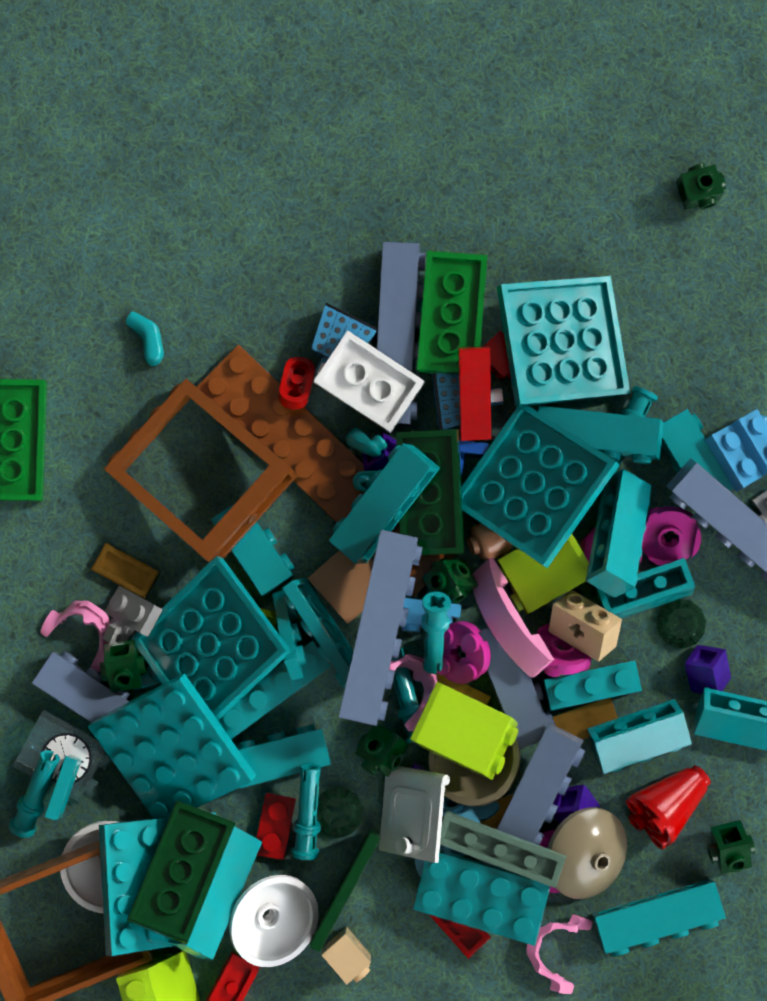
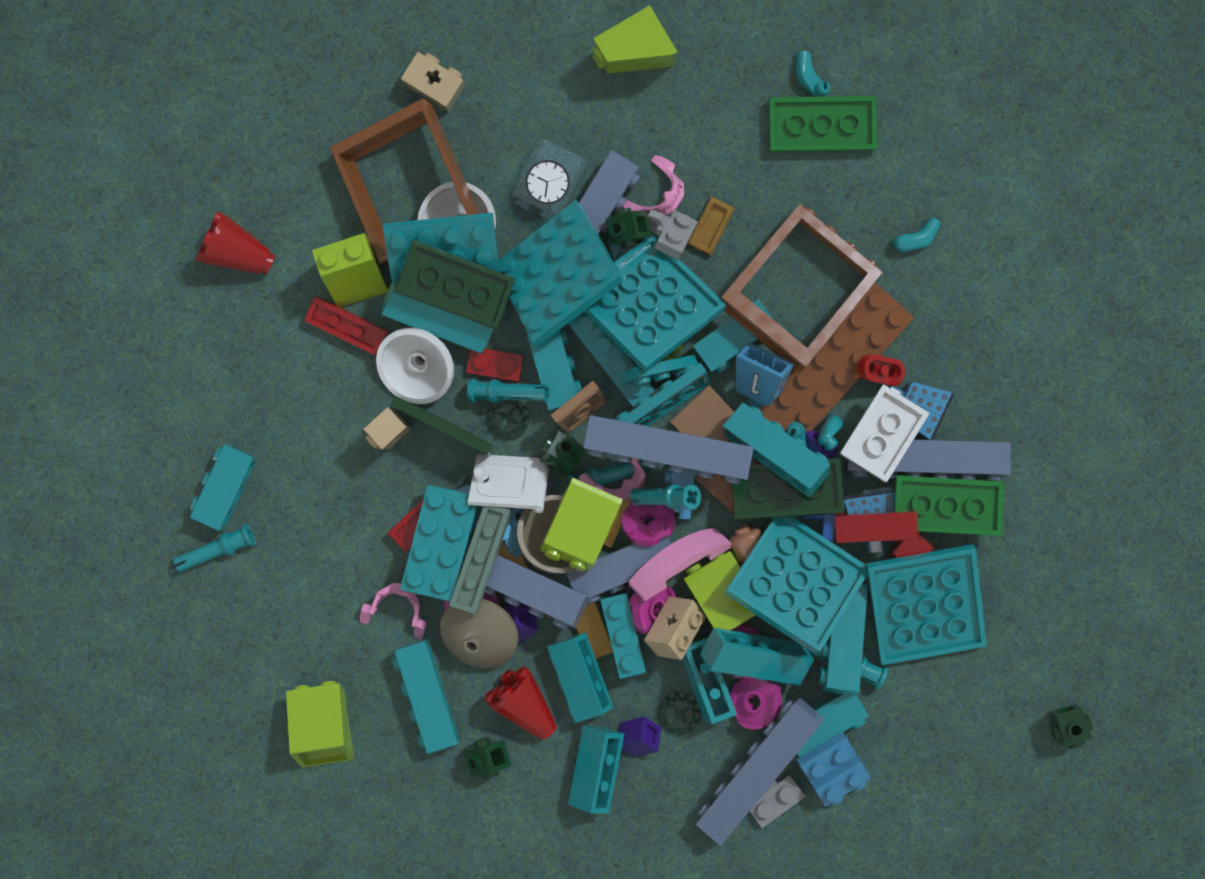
camera: 90 degrees right, 5 degrees up
(31, 804) = (507, 154): teal pin -> none
(63, 787) = (523, 181): teal tile -> none
(298, 518) = (761, 375): none -> dark azure torso
(329, 728) = (579, 408): none -> medium nougat tile
(451, 578) = (712, 510): dark green brick -> none

